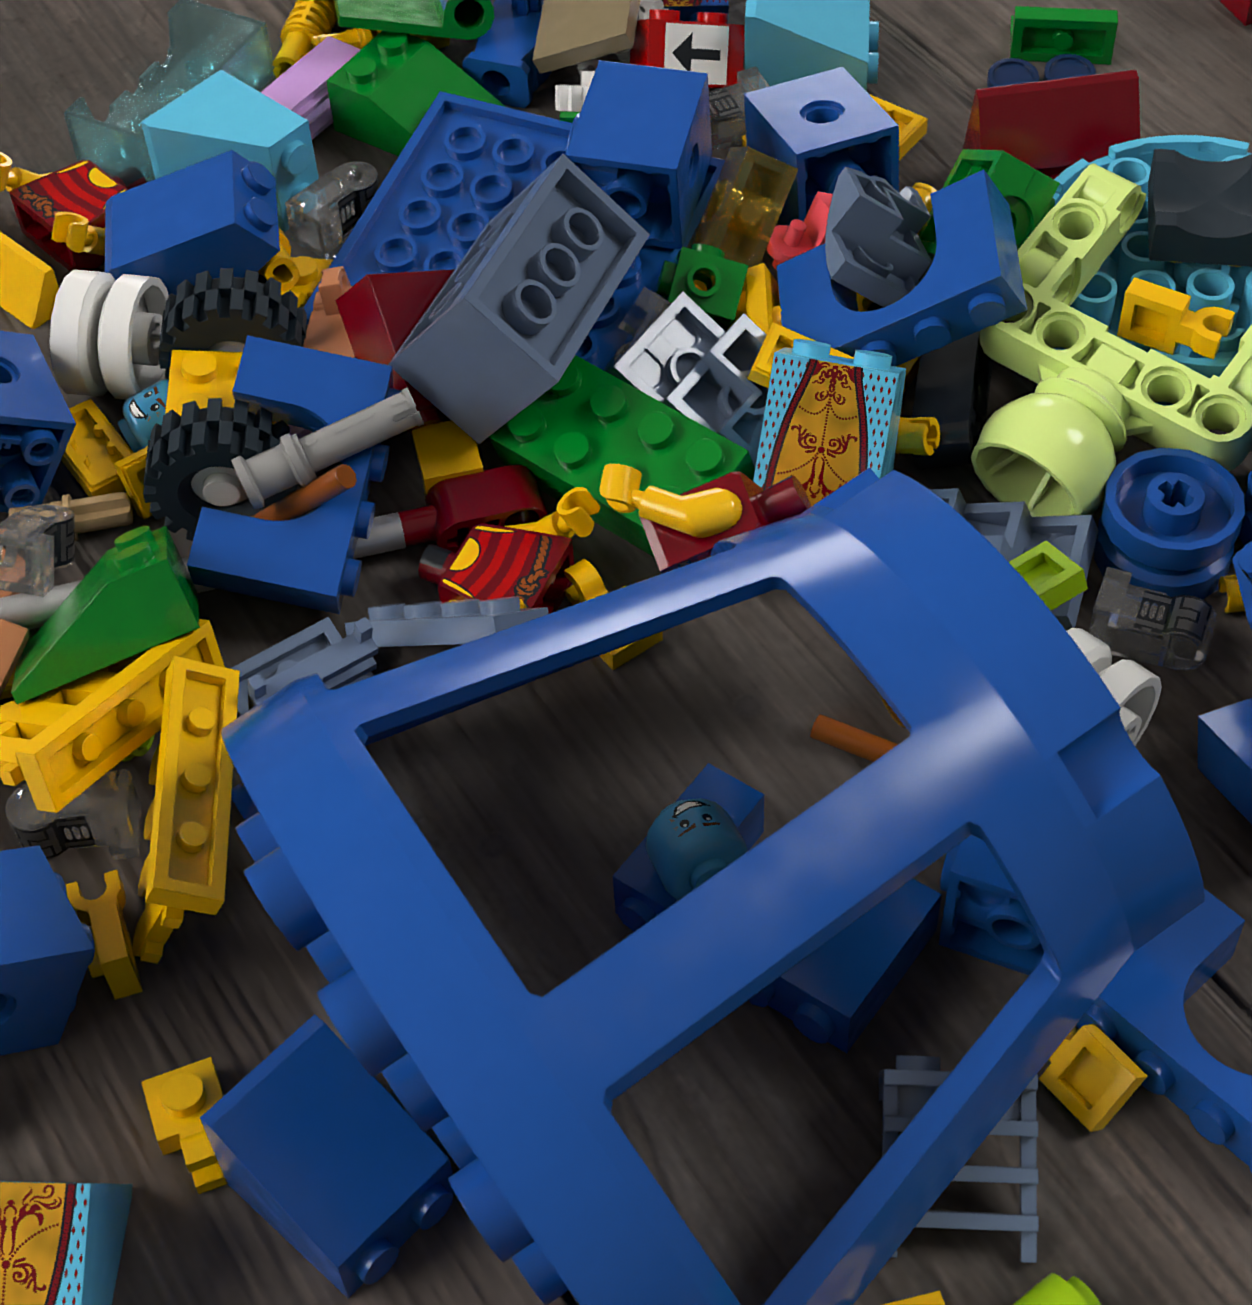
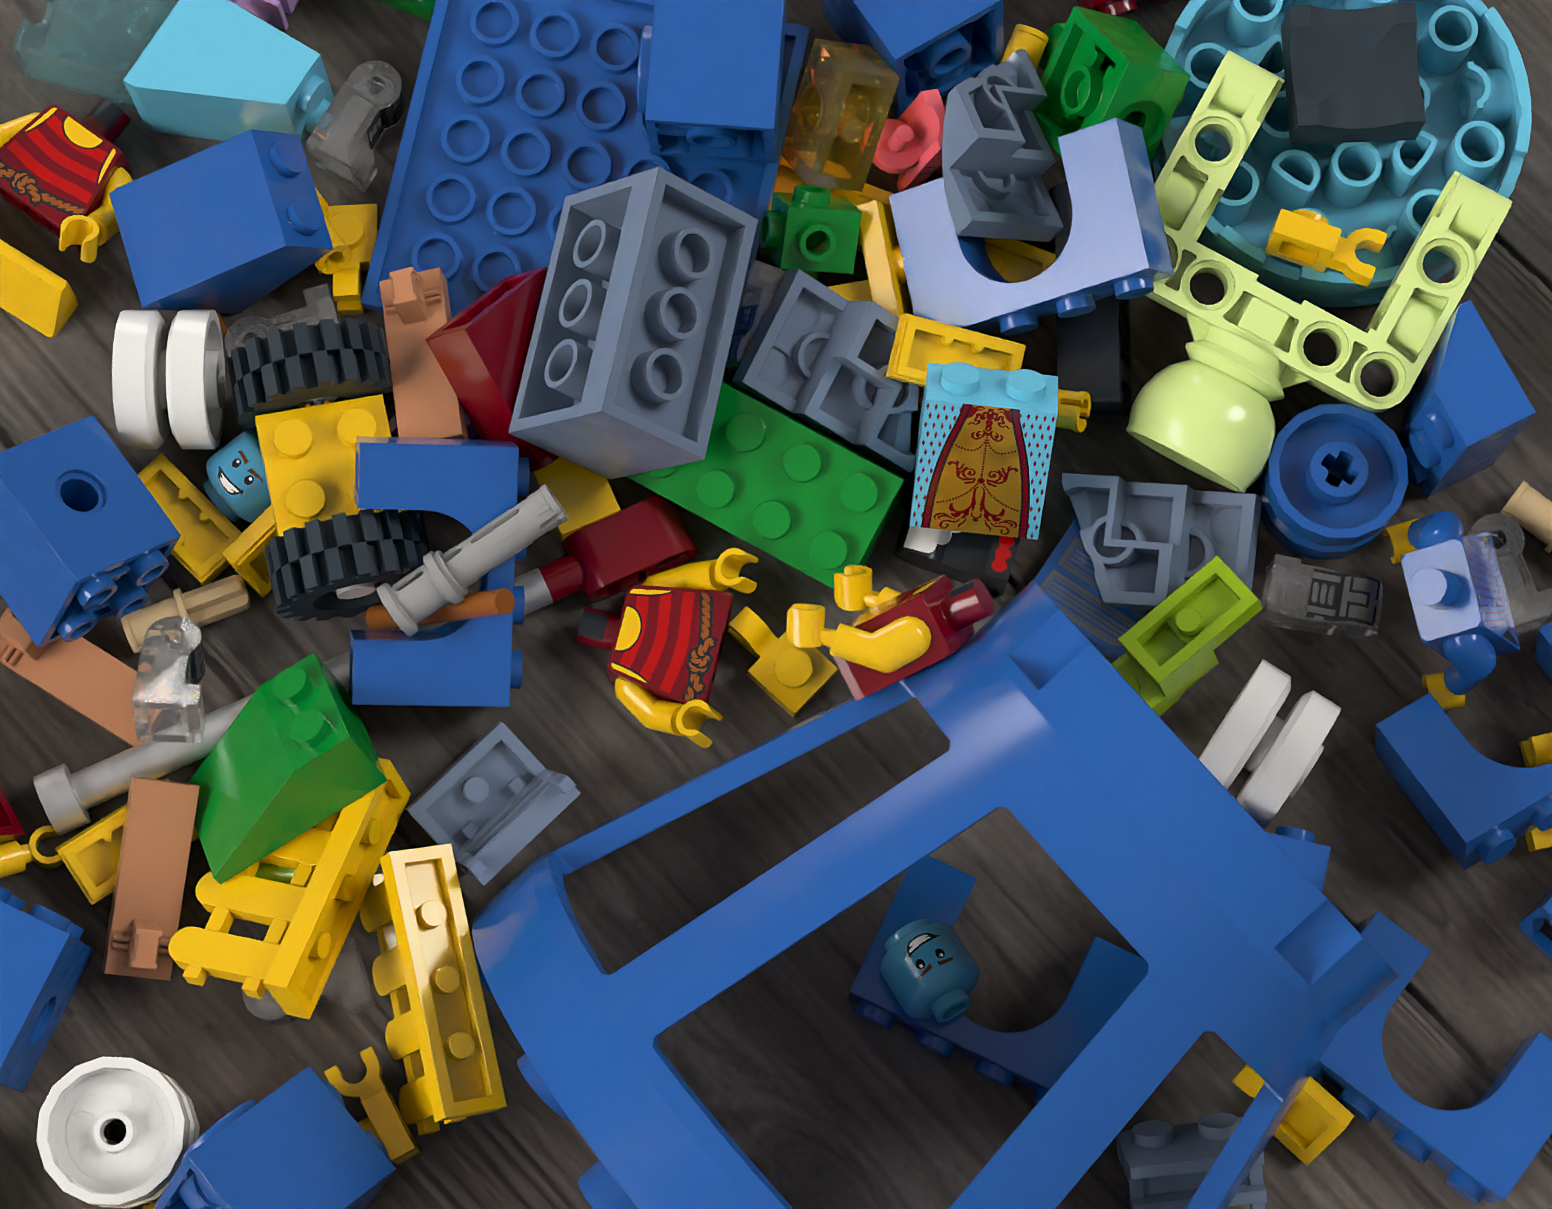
camera: 15 degrees left, 25 degrees up
(444, 622) = (637, 746): sand blue plate -> none

